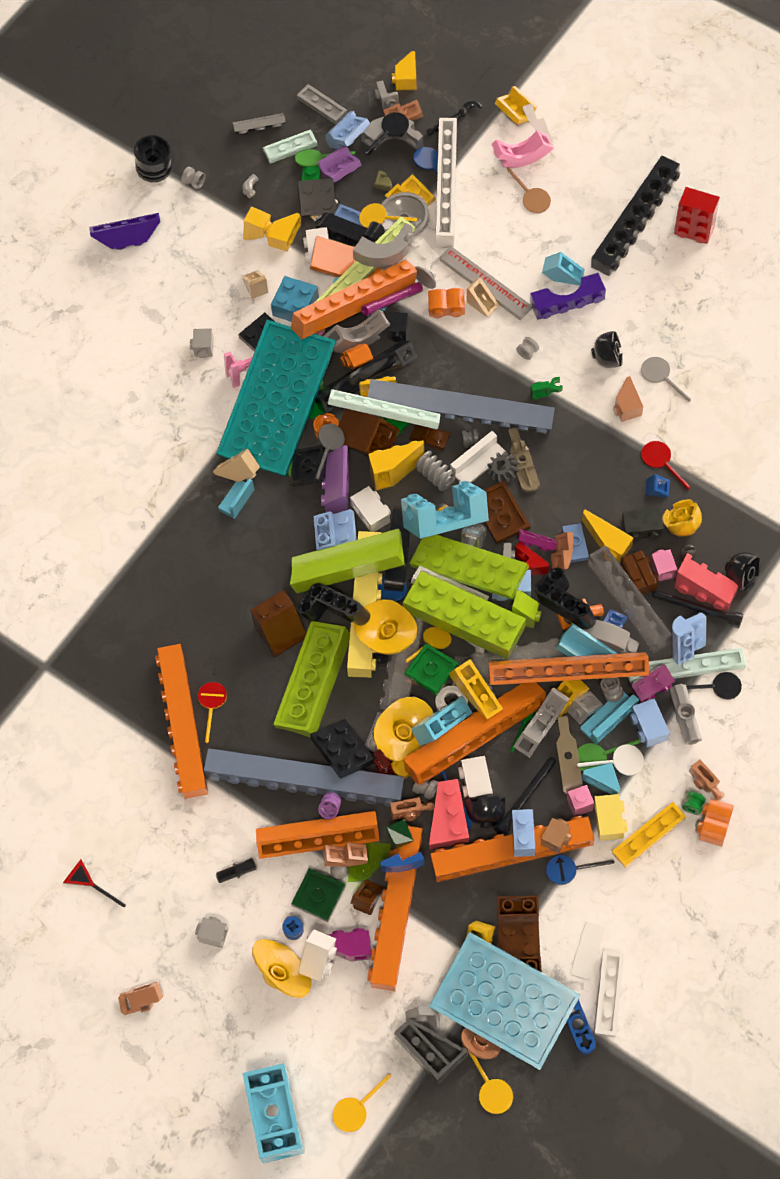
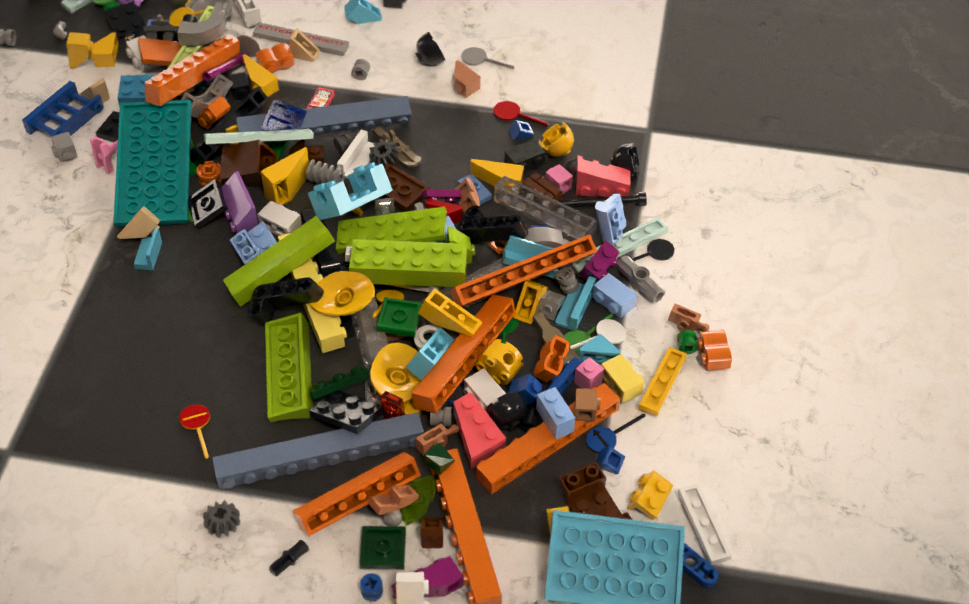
camera: 30 degrees left, 15 degrees down
(182, 721) = (174, 446): orange brick -> none
(190, 805) = (221, 519): none -> dark grey gear
(214, 284) = (57, 102): none -> blue fence
(278, 623) = (234, 330): reddish brown slope -> none
(329, 805) = (358, 466): medium lavender wheel -> none
(331, 438) = (221, 173): dark grey piece -> none
(335, 229) = (167, 31): none -> dark grey hips
(349, 715) = (339, 382): none -> dark green plate
(396, 864) = (452, 483): blue slope -> none
(416, 395) = (283, 117): none -> clear blue wing
(421, 327) = (260, 76): none -> yellow slope
(470, 374) = (321, 98): none -> tile
(502, 755) = (500, 361): none -> yellow brick
(513, 792) = (527, 386): none -> blue brick
(541, 722) = (522, 320): light grey arch -> none
(543, 389) = (390, 90): green plate -> none
(547, 303) = (362, 36): dark purple arch -> none
(547, 776) = (551, 358): none -> orange brick
(549, 797) = (566, 376): none -> blue plate
(557, 895) = (610, 460): none -> blue slope
(575, 945) = (650, 494): none -> yellow bracket

